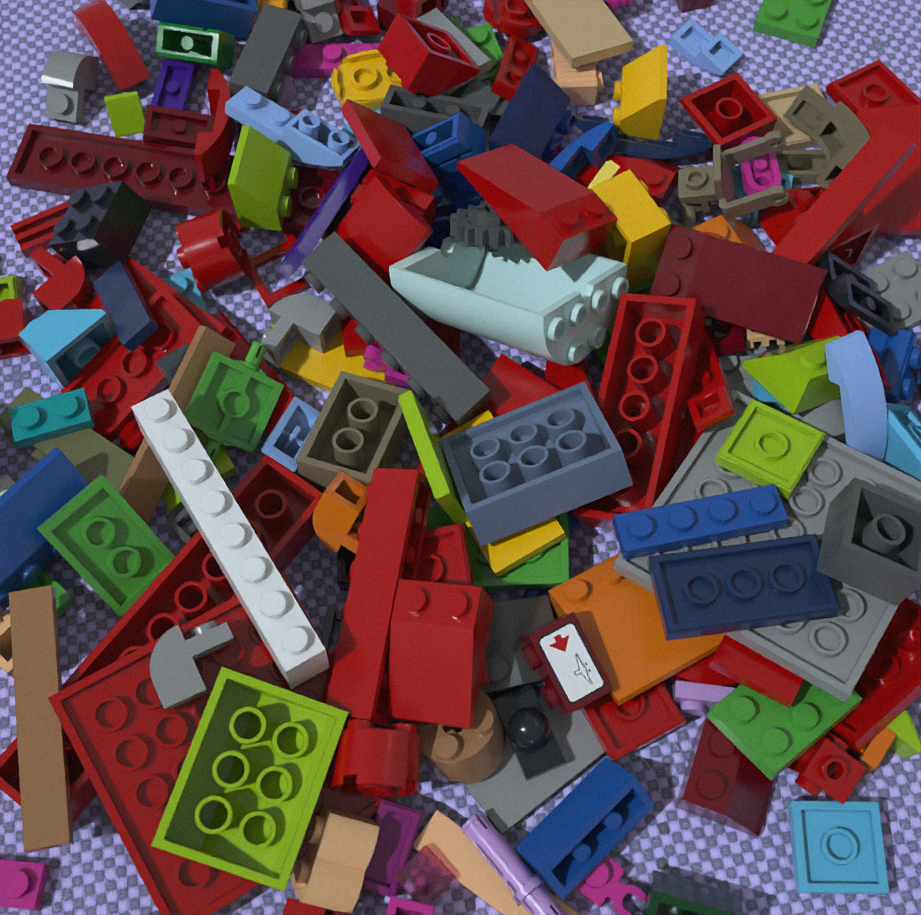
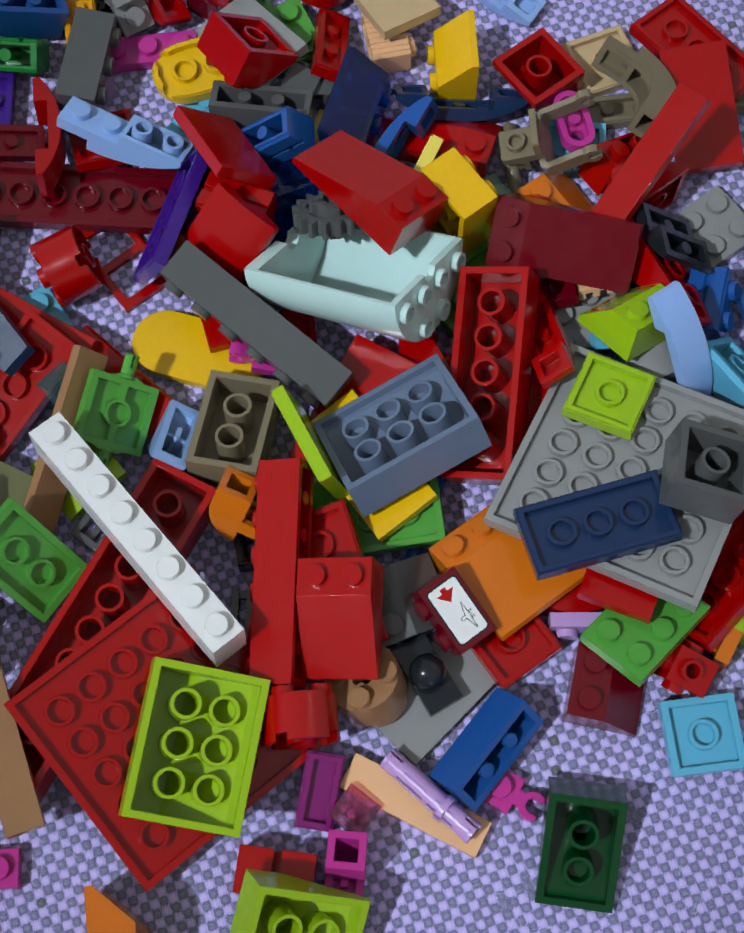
camera: 10 degrees left, 5 degrees up
(131, 437) = (24, 455): red plate -> none
(174, 665) = (109, 657): light grey brick -> none
(261, 181) = (105, 192): lime slope -> none
(302, 320) = (165, 323): light grey brick -> none
(335, 860) = (276, 807): light nougat brick -> none
(699, 521) = (554, 471): blue plate -> none

